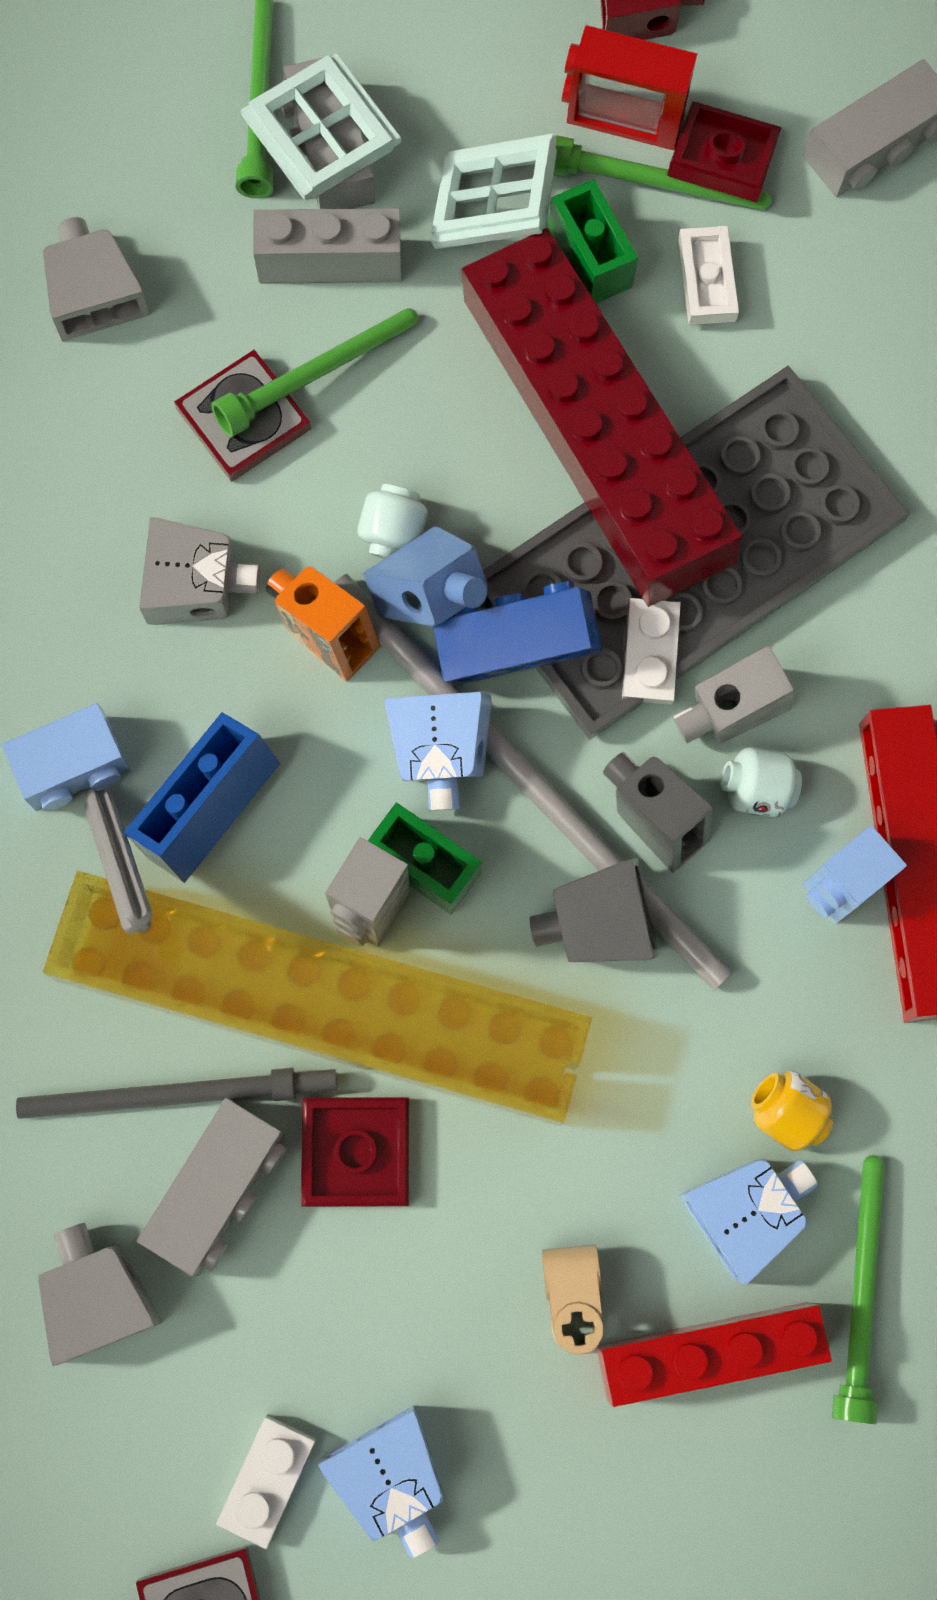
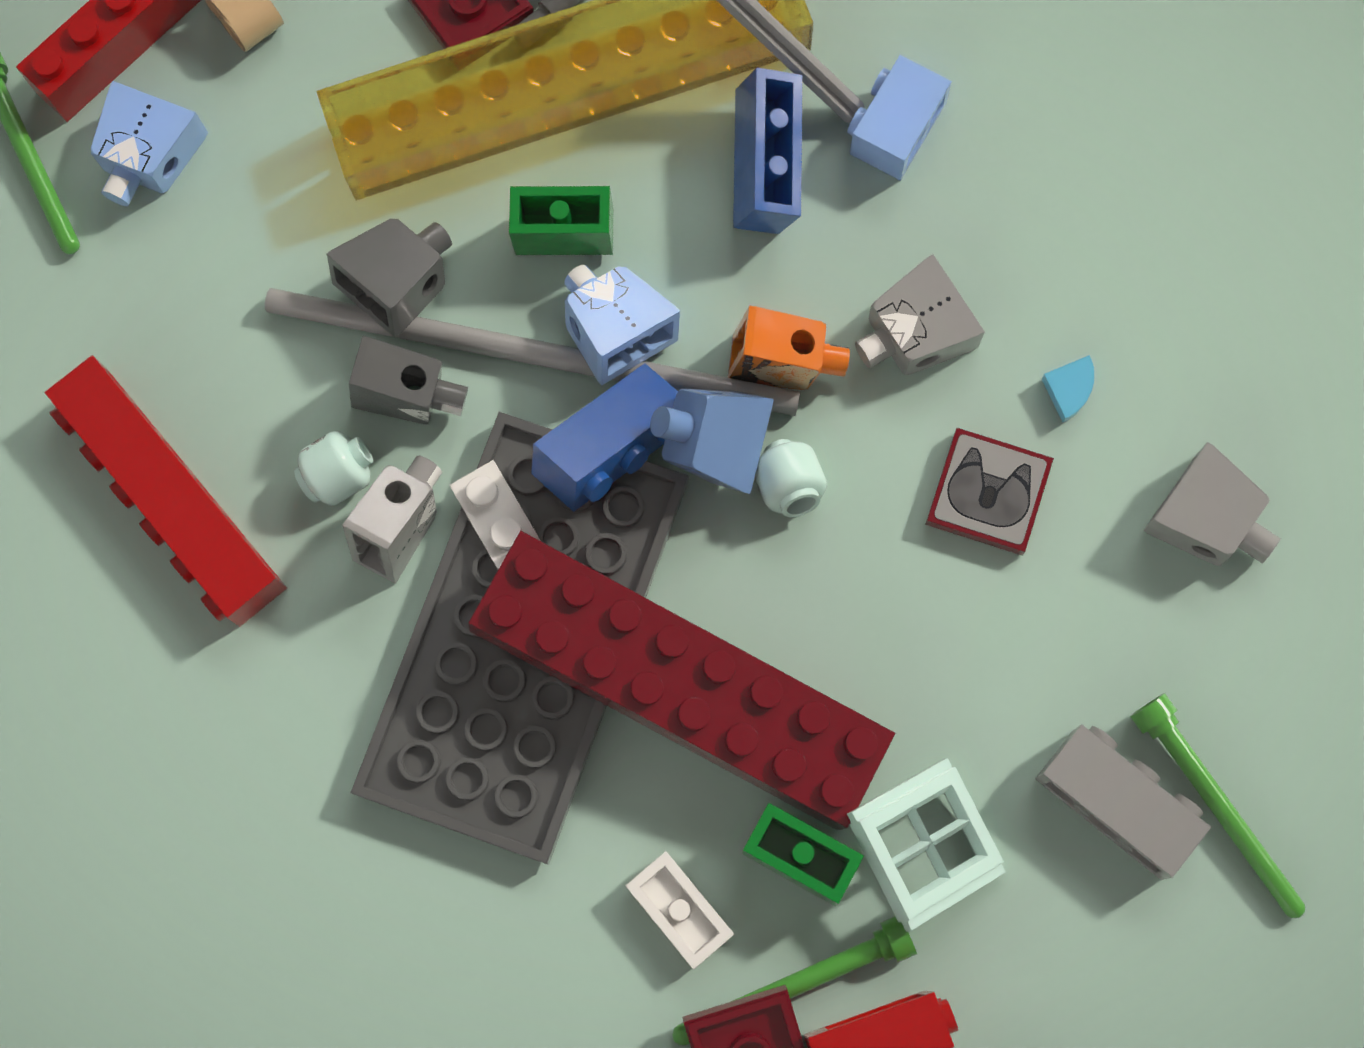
camera: 155 degrees right, 0 degrees up
(113, 449) = (1070, 386): none -> medium azure tile
(237, 410) = (989, 478): bright green piece -> none
(327, 245) = (1035, 687): light grey brick -> none
(356, 104) = (1111, 829): light aqua piece -> none
(368, 893) = (576, 136): light grey brick -> none
(792, 1110) = (154, 233): yellow head -> none
(853, 875) = (208, 428): light blue brick -> none

